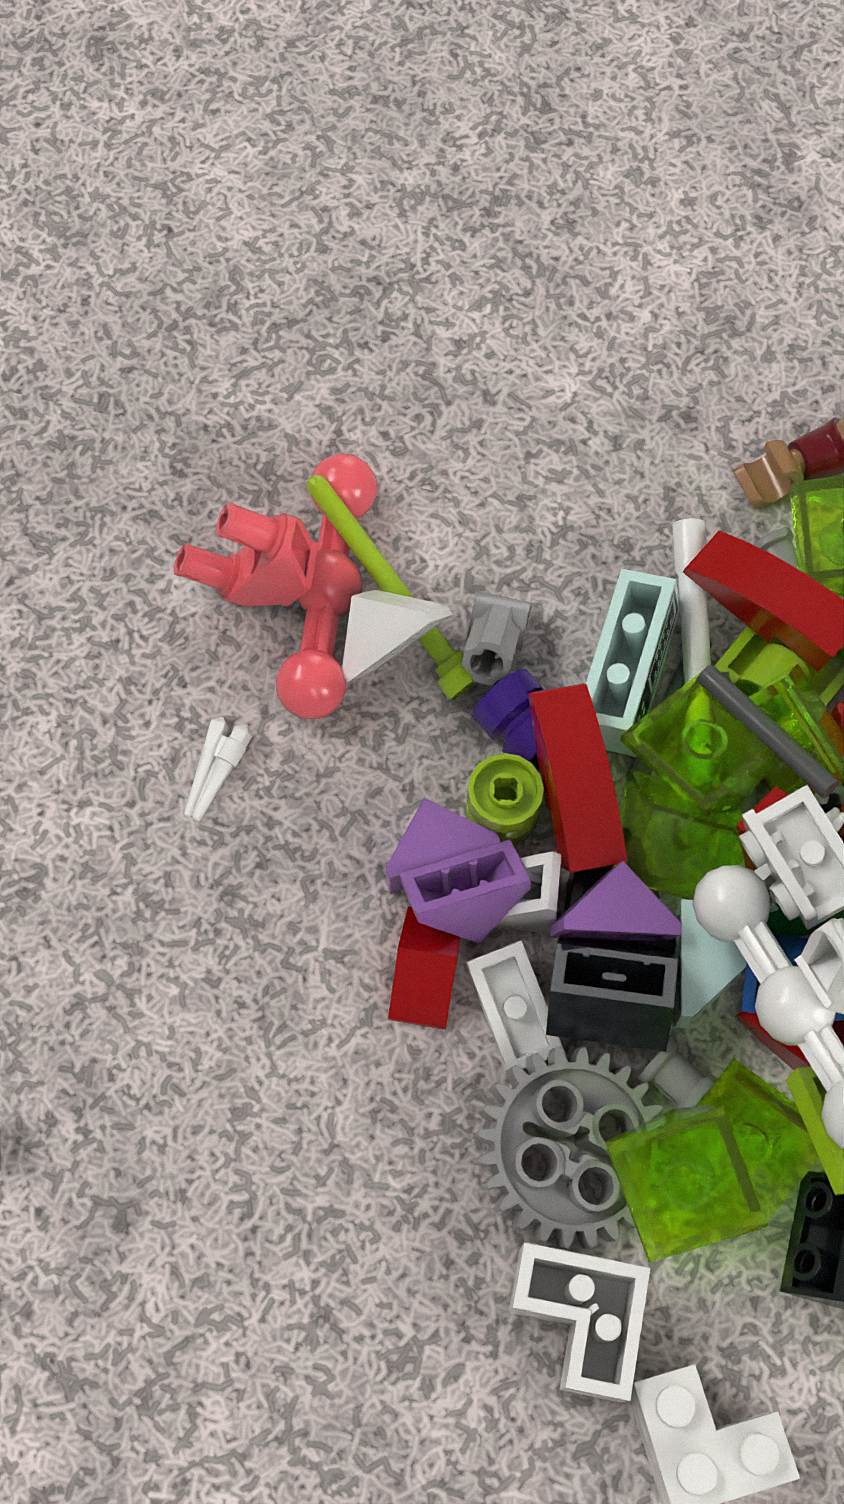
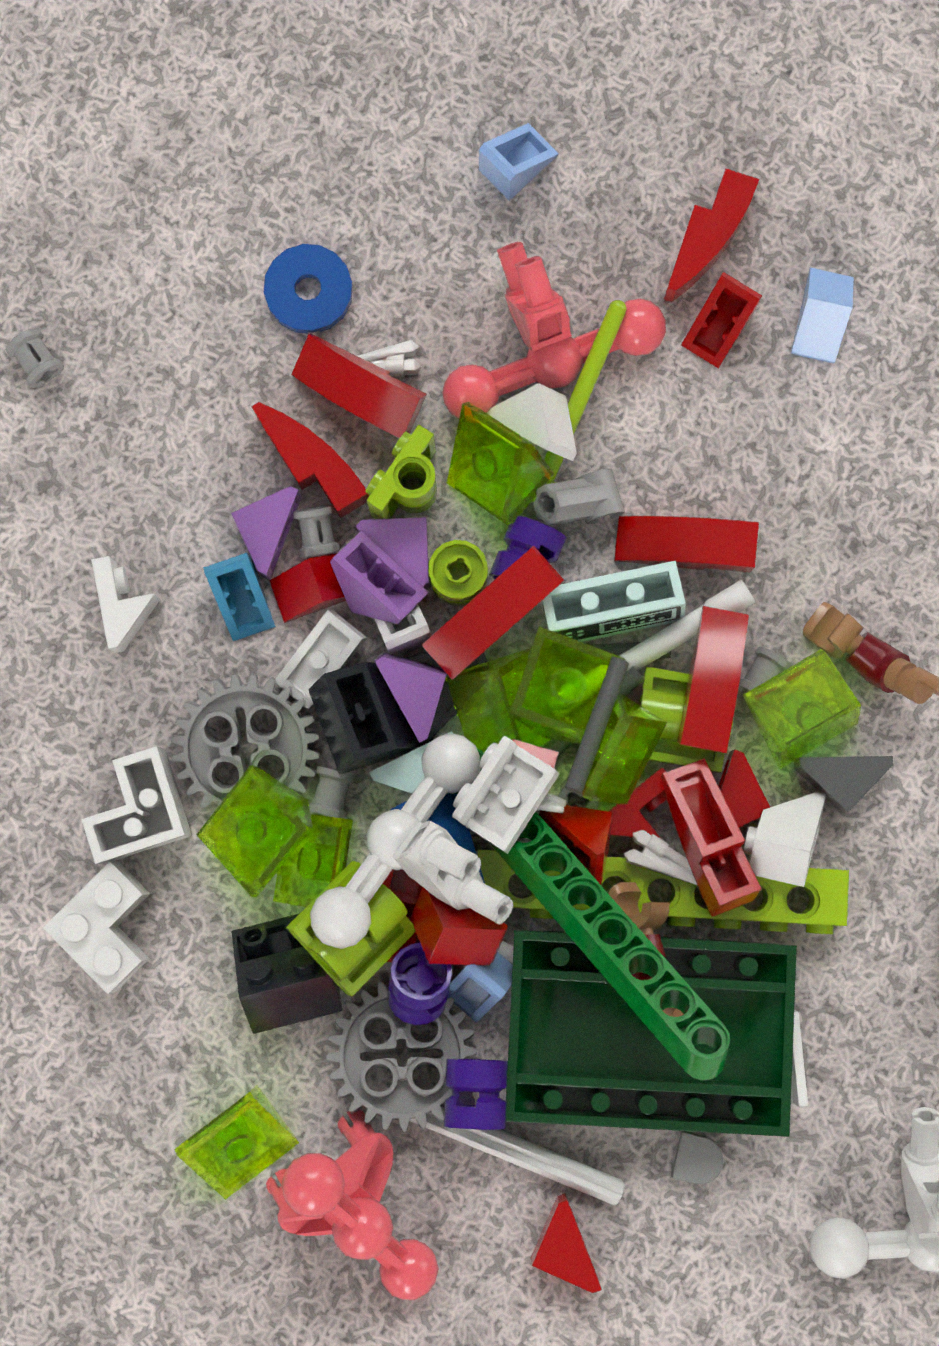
camera: 65 degrees right, 15 degrees up
(88, 516) = (515, 159): none -> light blue slope
(91, 827) = (302, 263): none -> blue tile
(230, 796) = (358, 386): none -> red slope
(278, 890) = (312, 460): none -> red slope
(285, 371) = (711, 231): none -> red slope
(330, 986) = (266, 527): none -> medium lavender slope
(332, 1212) = (120, 616): none -> white slope
(365, 929) = (316, 530): none -> light grey bush
(372, 788) = (411, 461): none -> lime plate
(384, 405) = (721, 320): none -> red slope
(391, 1056) = (240, 596): none -> dark azure slope
(407, 696) = (495, 465): none -> clear neon green slope
(437, 319) = (823, 315): none -> light blue slope
(593, 565) = (688, 540): none -> red slope

